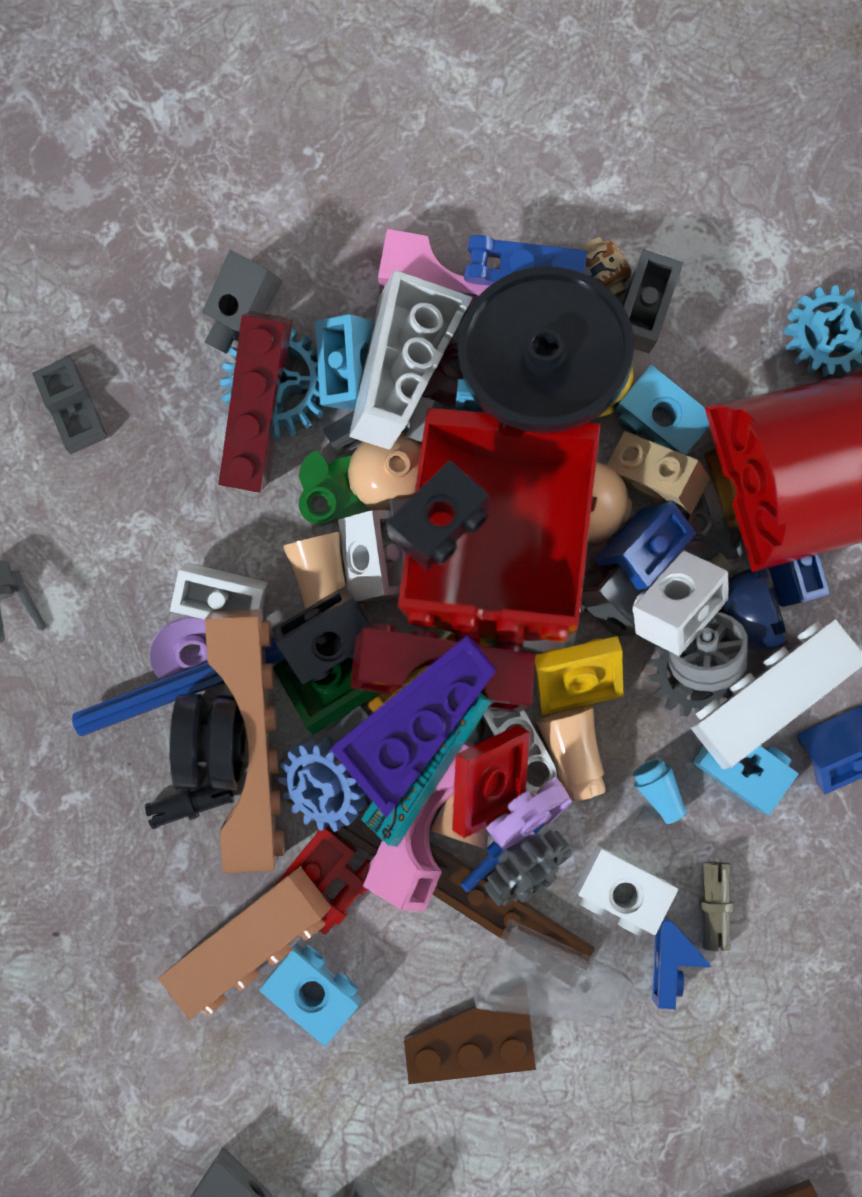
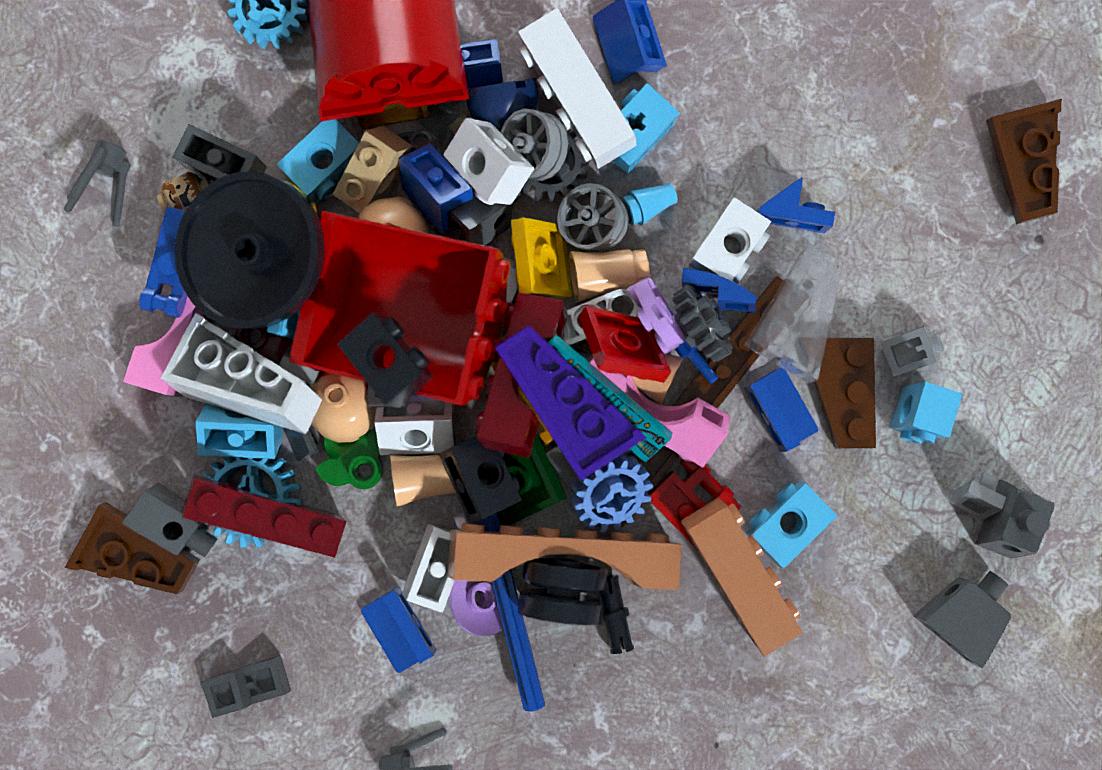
camera: 85 degrees left, 0 degrees up
(147, 564) = (398, 630): none -> blue panel
(200, 249) = (122, 553): none -> reddish brown wing
(441, 970) = (781, 409): none -> blue panel
(454, 1138) = (925, 412): none -> medium azure brick
(526, 1117) = (912, 350): none -> light grey bracket
(565, 895) = (730, 294): none -> blue slope
(633, 173) = (104, 160): none -> dark grey plant
(634, 728) = (592, 218): none -> light grey wheel
(716, 906) = (751, 168): dark tan pin -> none

